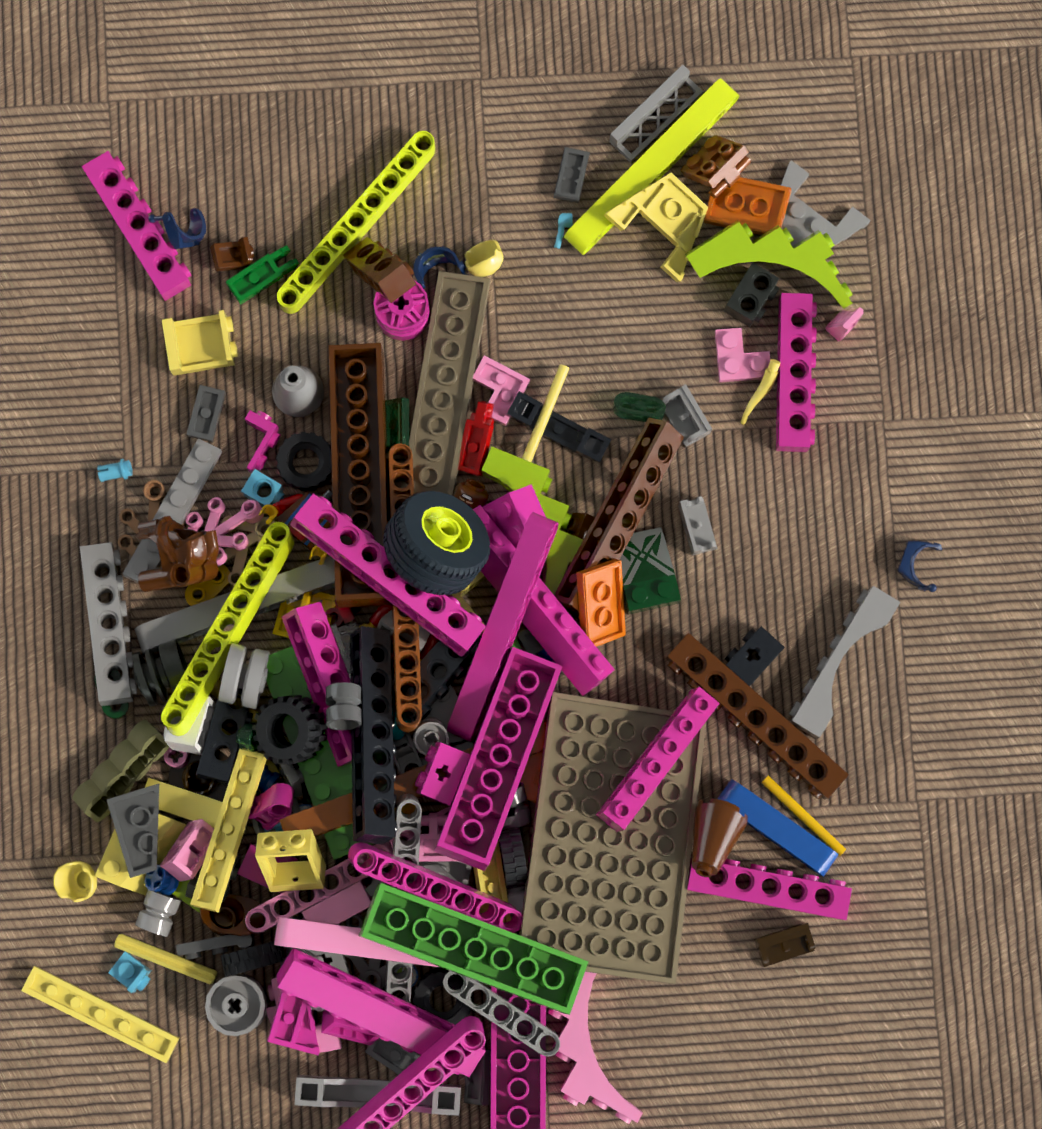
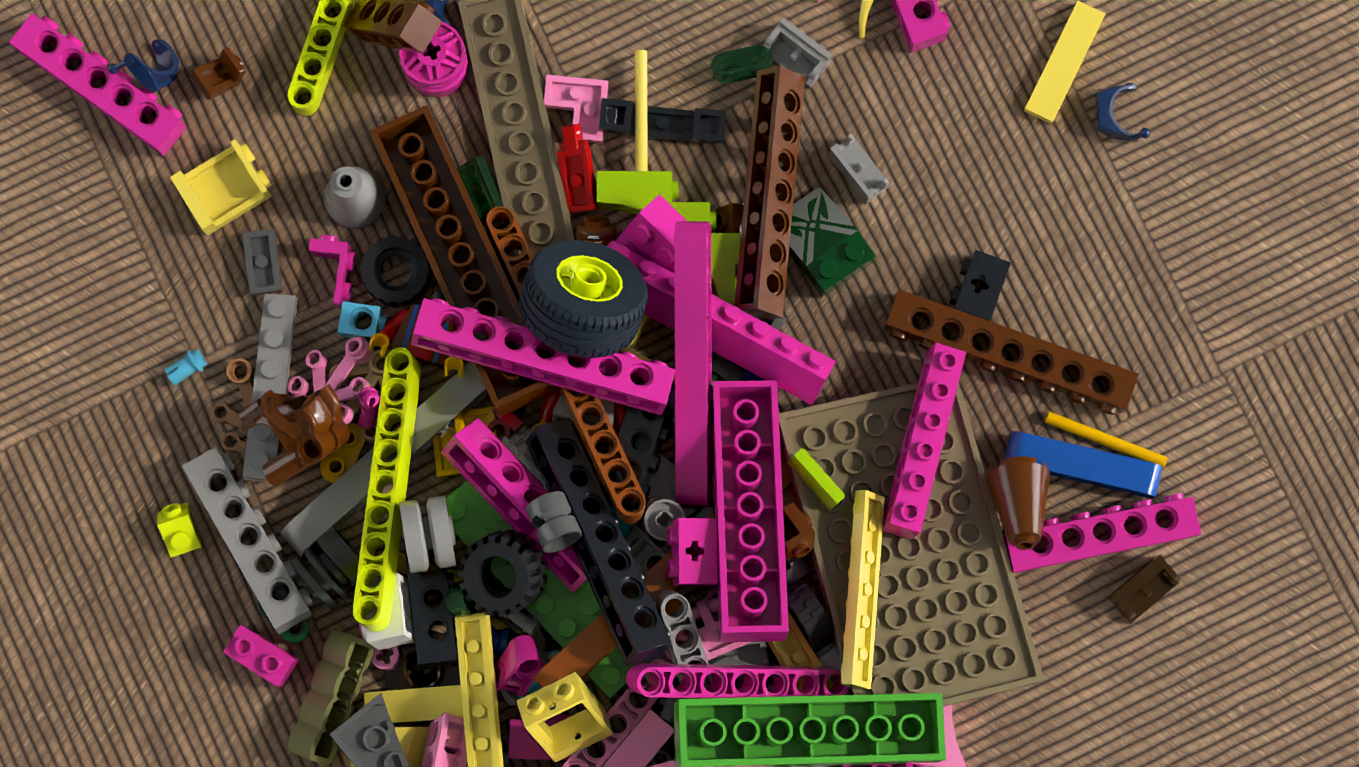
camera: 20 degrees left, 0 degrees up
(58, 593) = (178, 529): none -> neon yellow bracket
(81, 717) = (261, 656): none -> dark pink brick
(242, 555) = (369, 402): none -> dark pink arm
(260, 275) = (260, 85): green hinge -> none
(533, 786) = (800, 527): none -> reddish brown bracket
(561, 754) = (816, 478): none -> lime tile
(561, 856) = (862, 590): none -> light yellow plate
(601, 602) = (790, 292): orange tile -> none
(816, 707) = (1071, 315): light grey arch -> none
(893, 506) = (1064, 62): none -> light yellow tile

